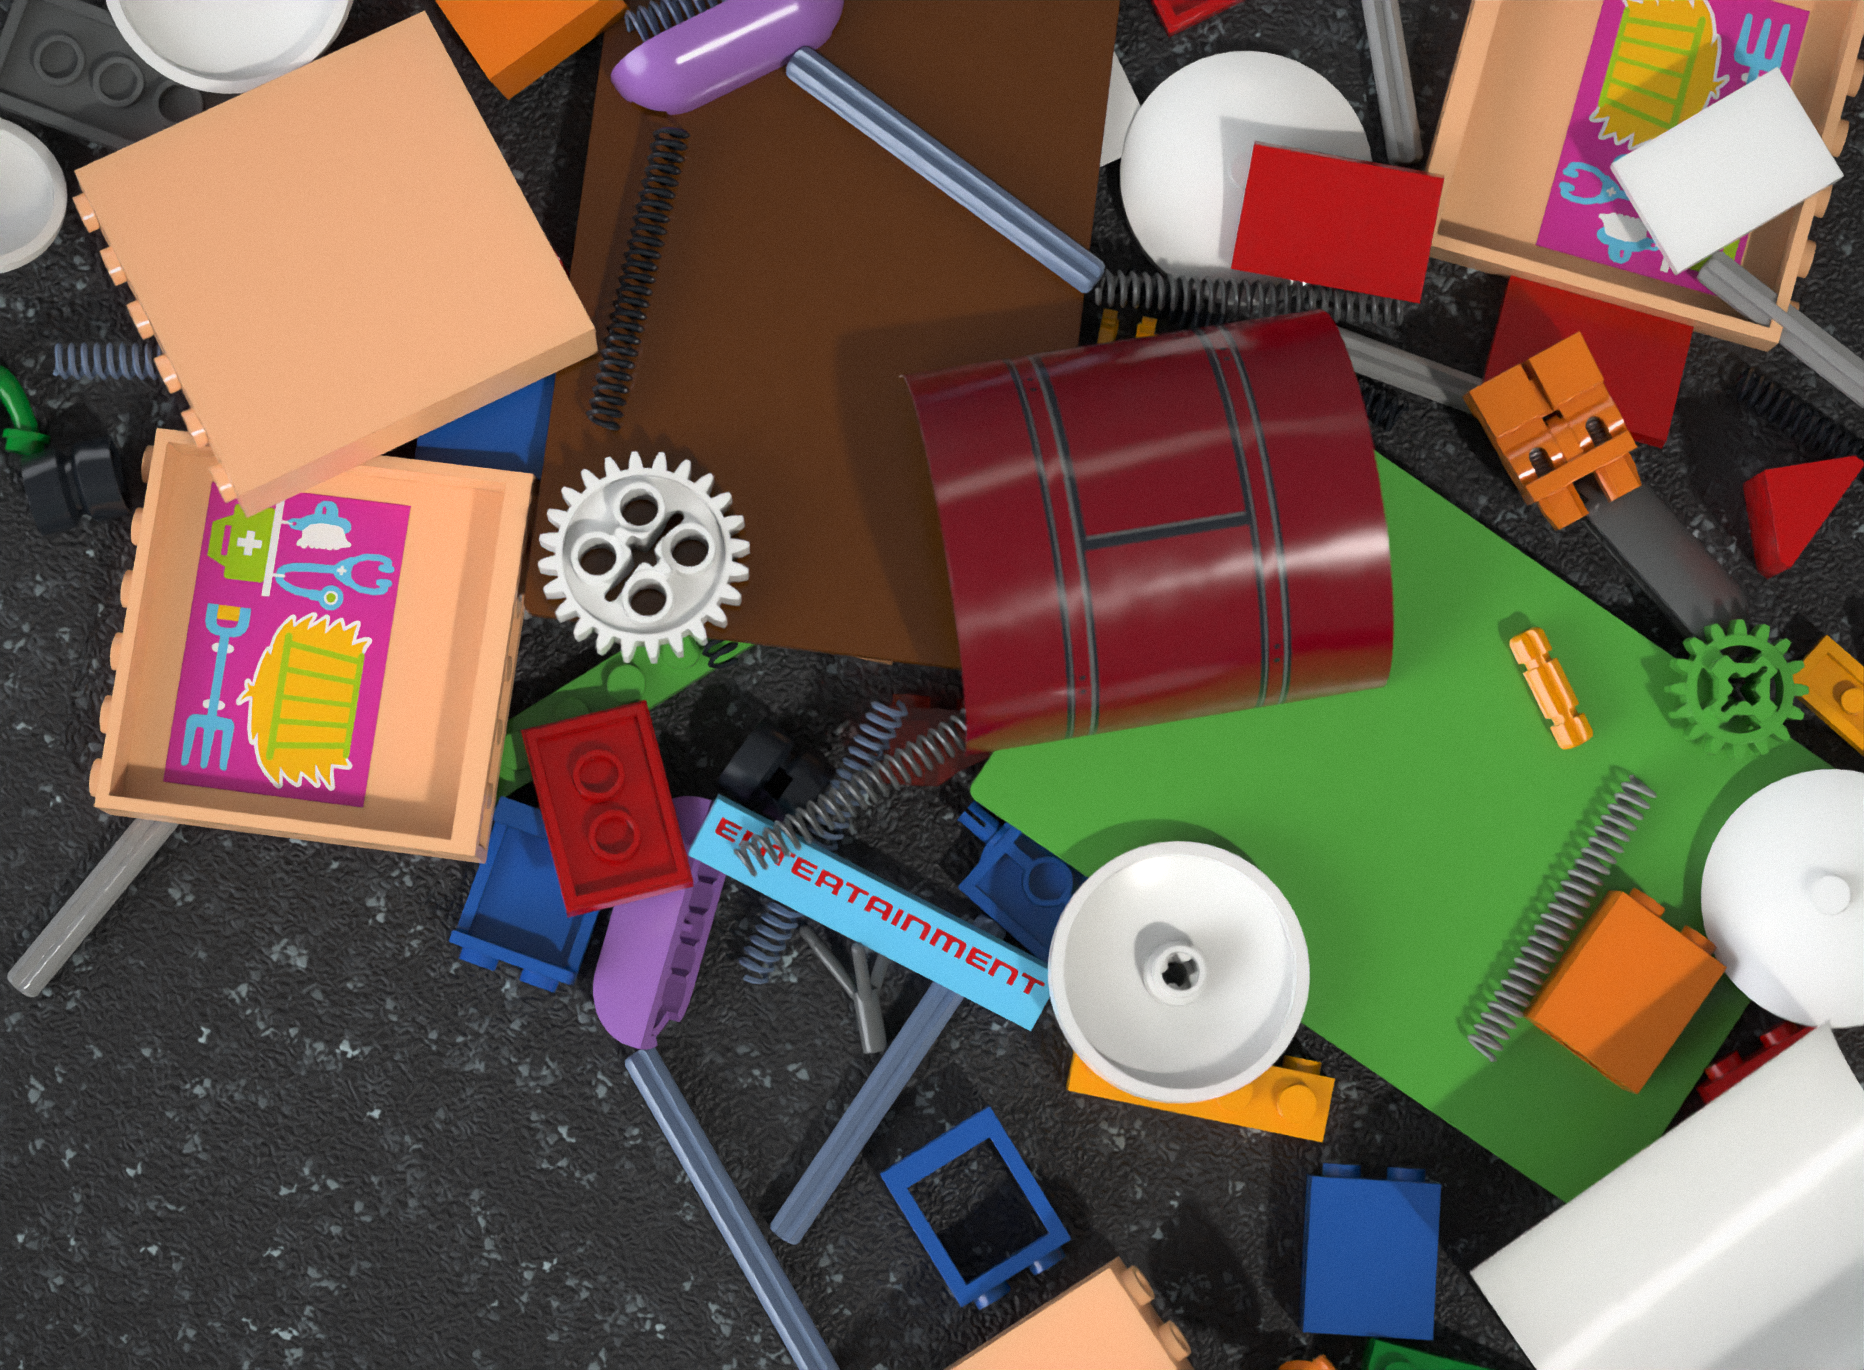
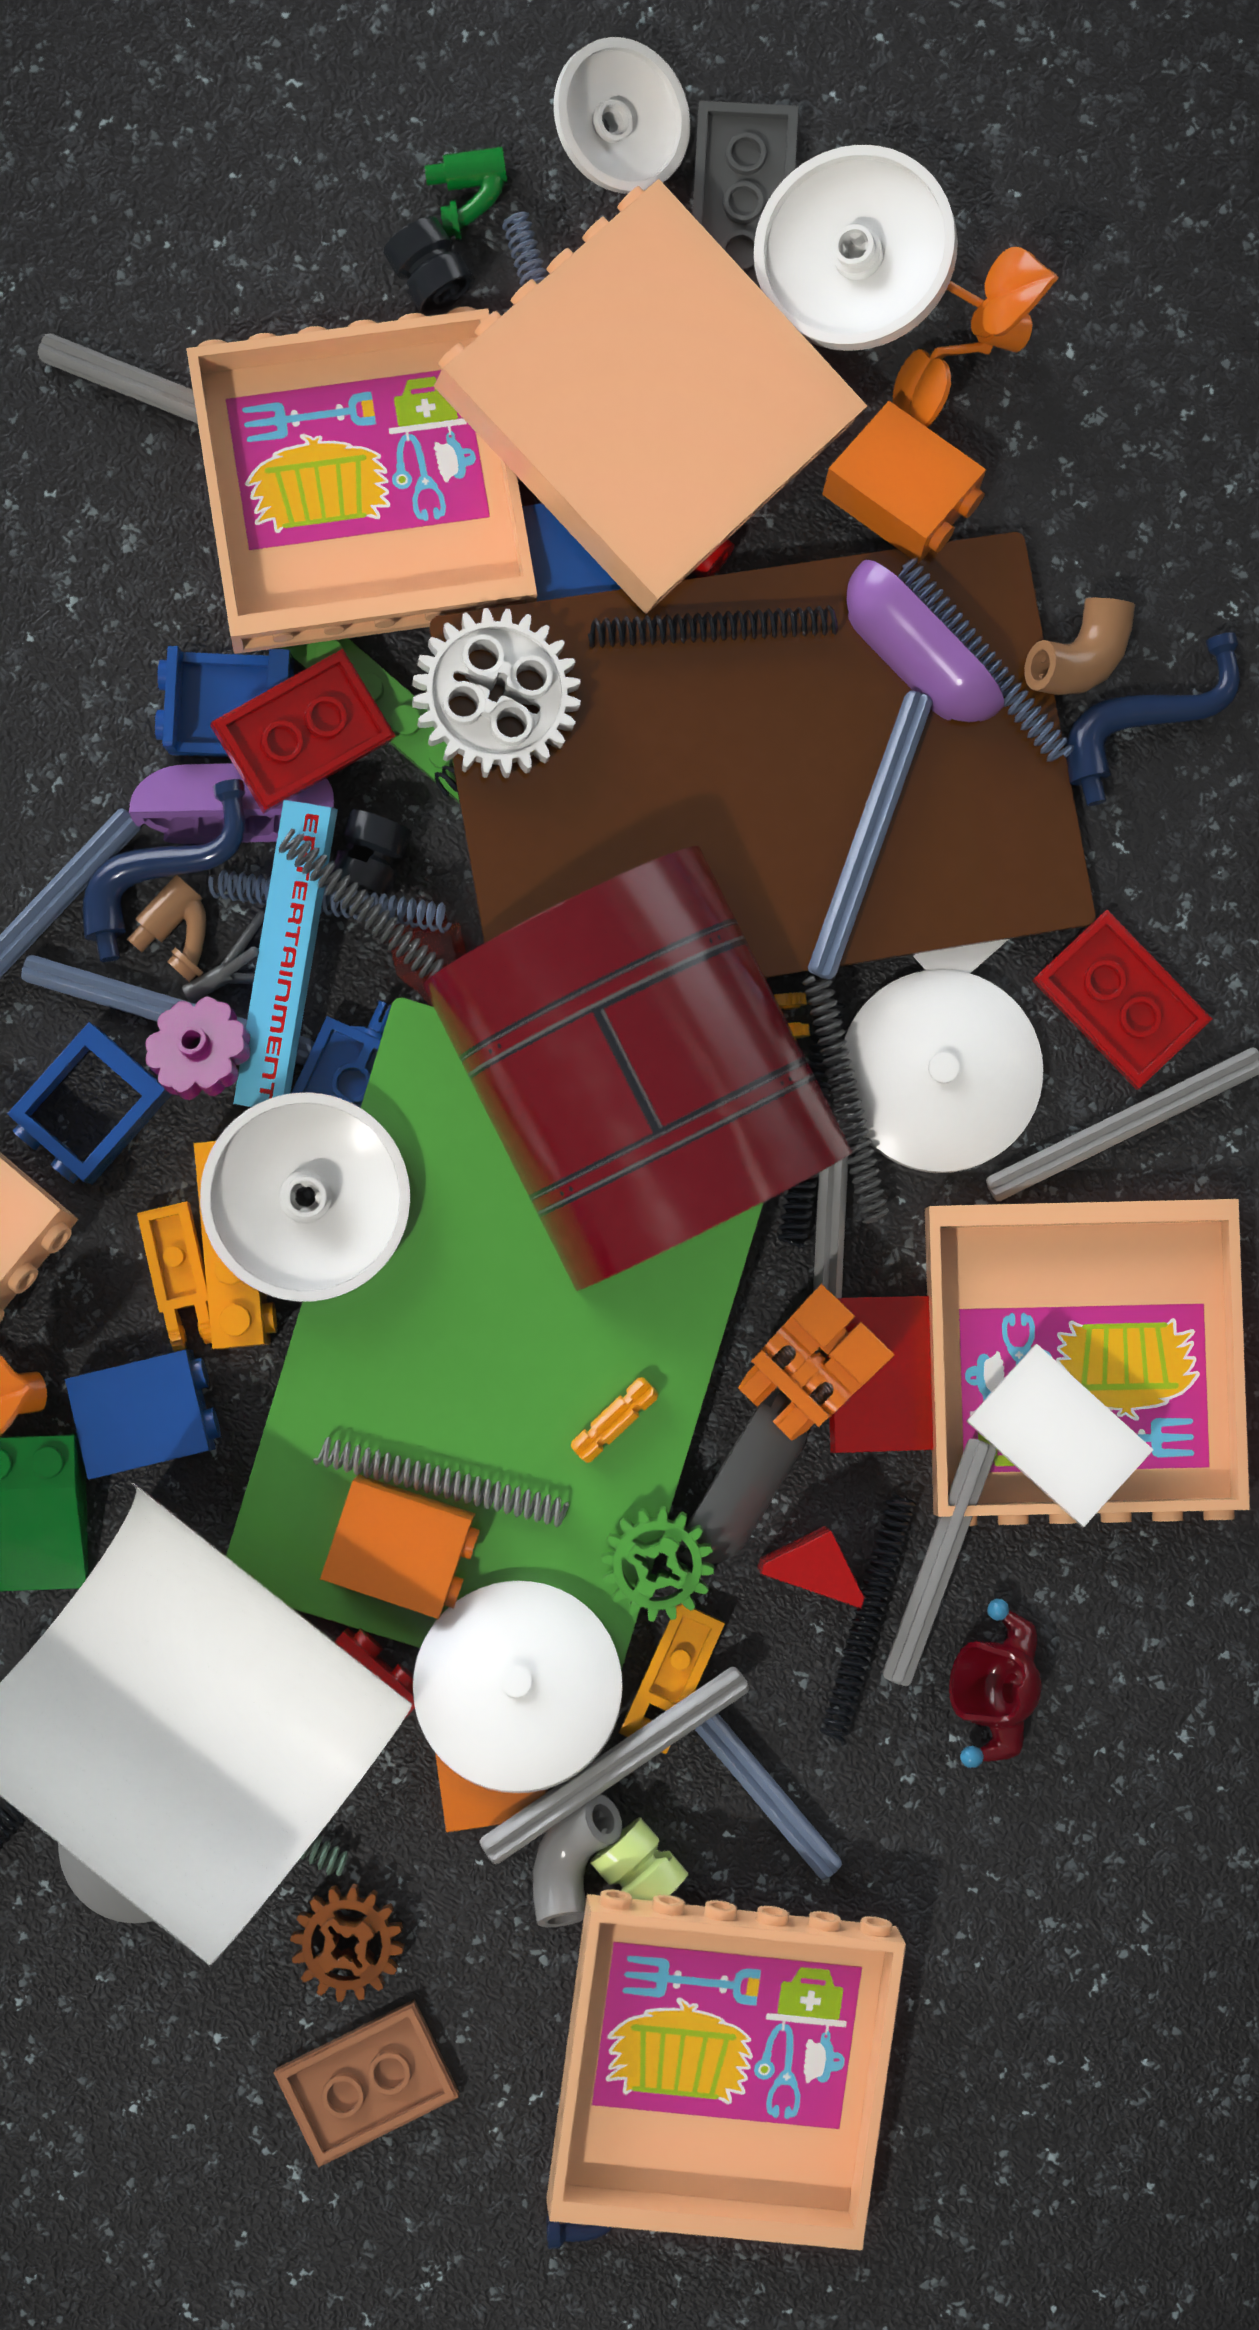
camera: 80 degrees right, 0 degrees up
(716, 1108) = (105, 890): none -> dark blue animal
(772, 1051) = (164, 914): none -> medium nougat plant
(953, 1051) = (197, 1048): none -> plant
(1206, 1161) = (176, 1268): none -> light orange hinge
(1337, 221) = (924, 1145): red tile -> none

